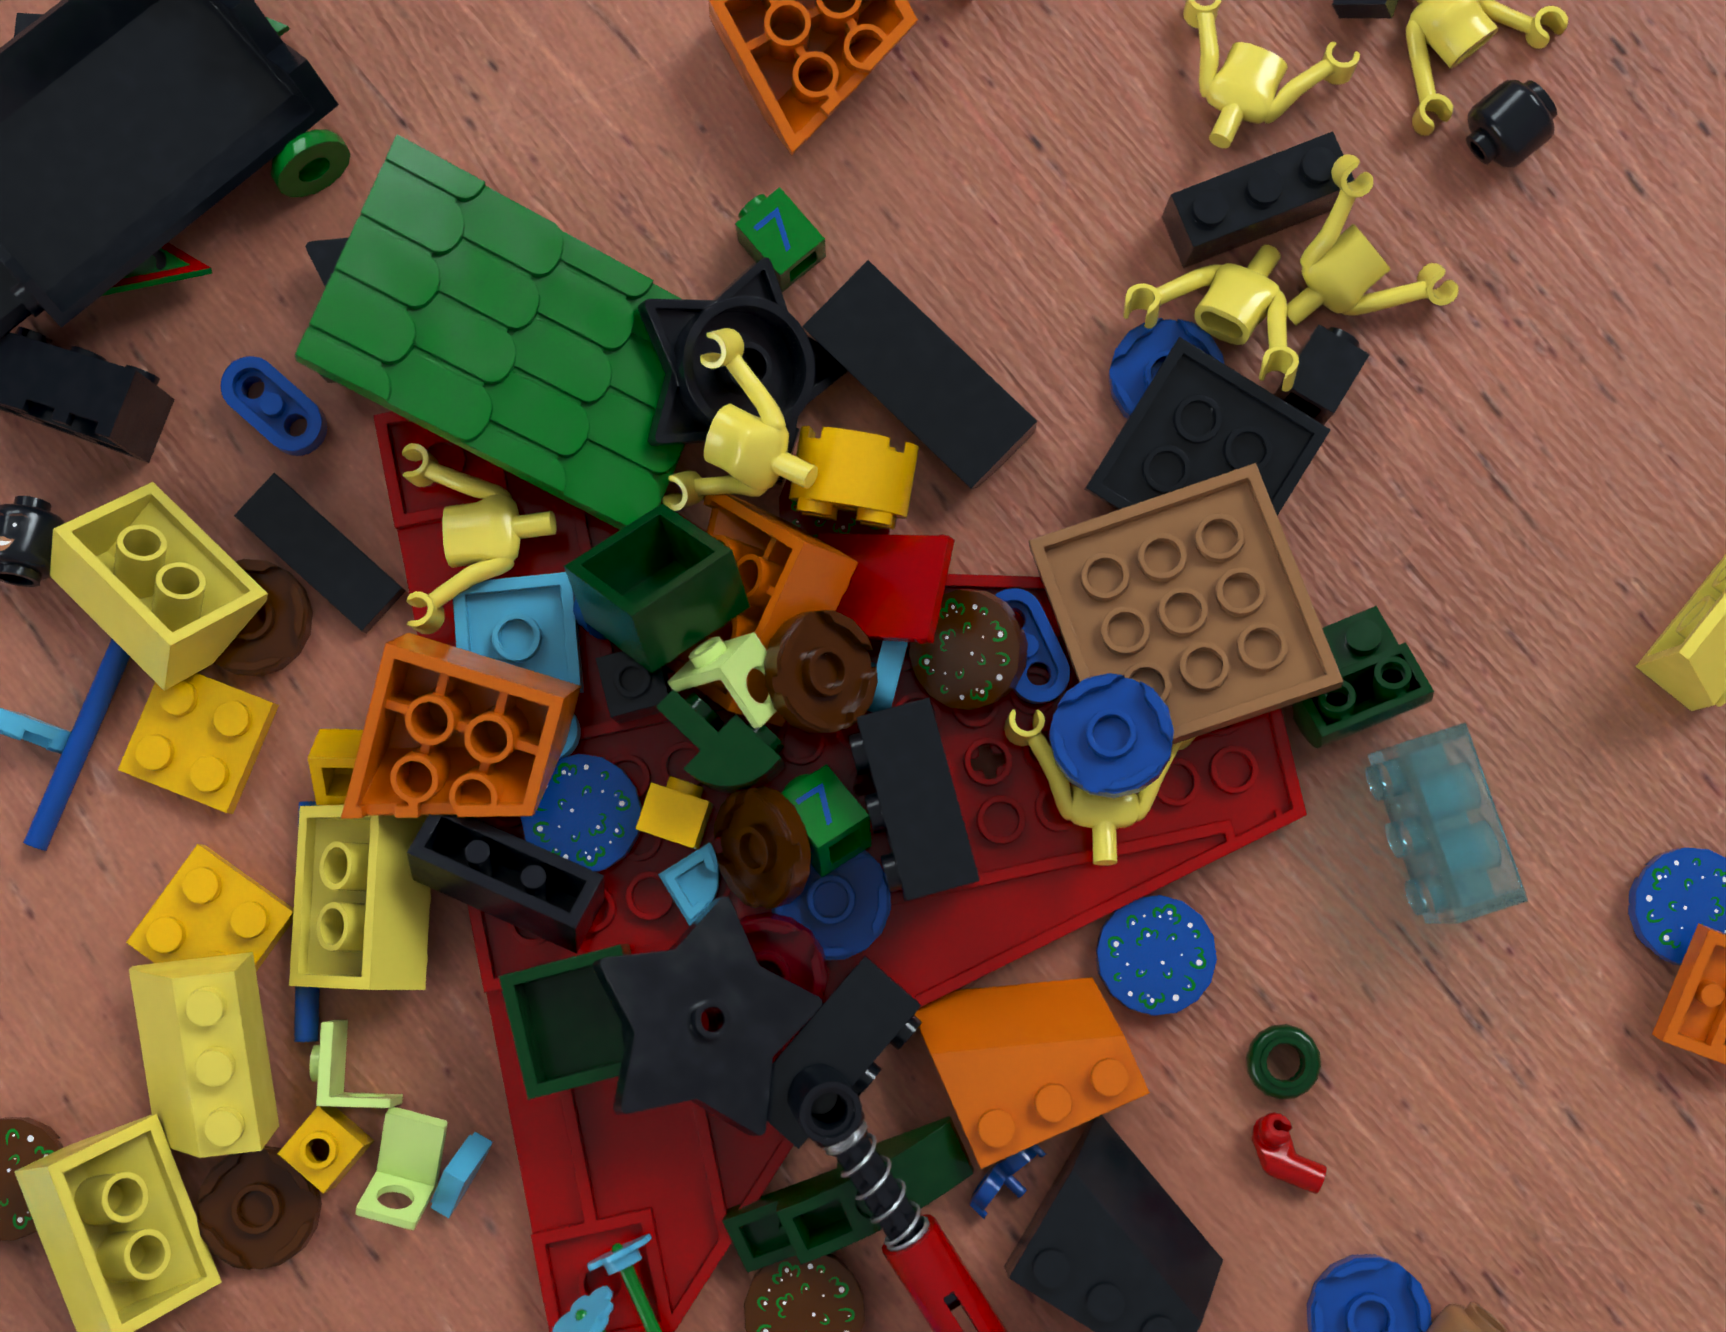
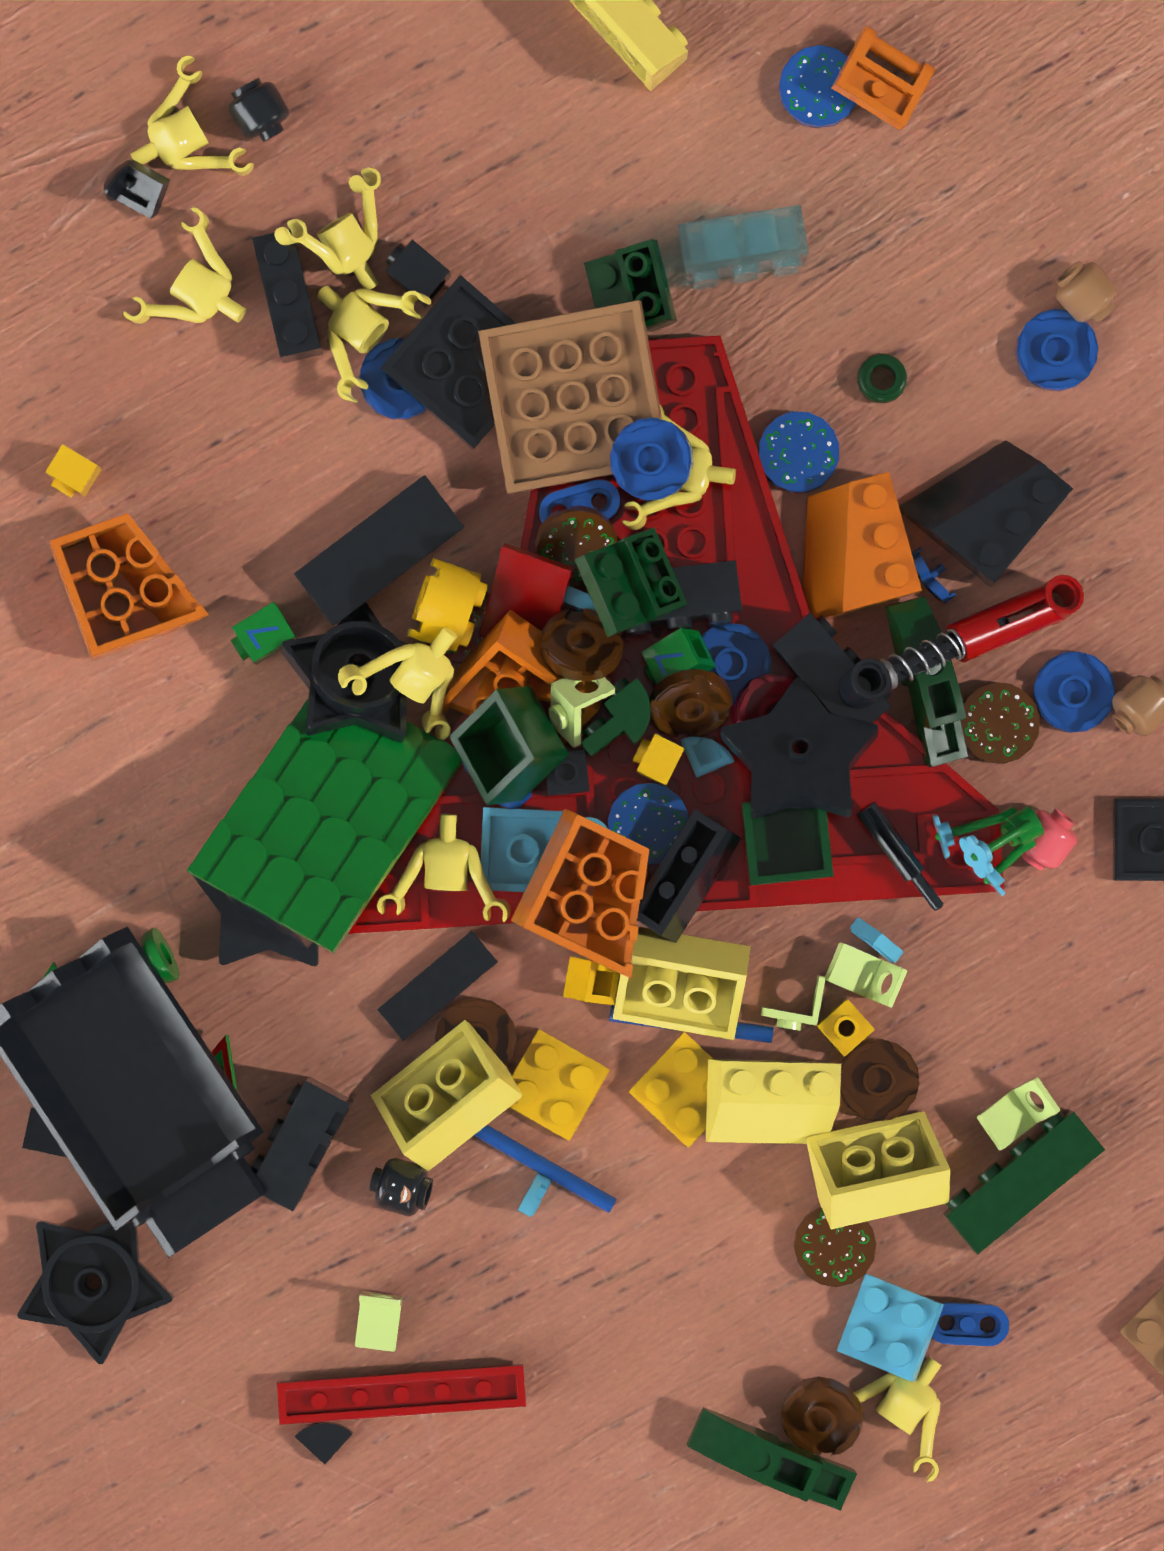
camera: 85 degrees left, 5 degrees up
(275, 408) = (329, 1003): blue plate -> none
(588, 1189) = (897, 851): none -> black axle
(919, 722) = (631, 582): none -> dark green brick
(1279, 1157) = (945, 391): red arm -> none

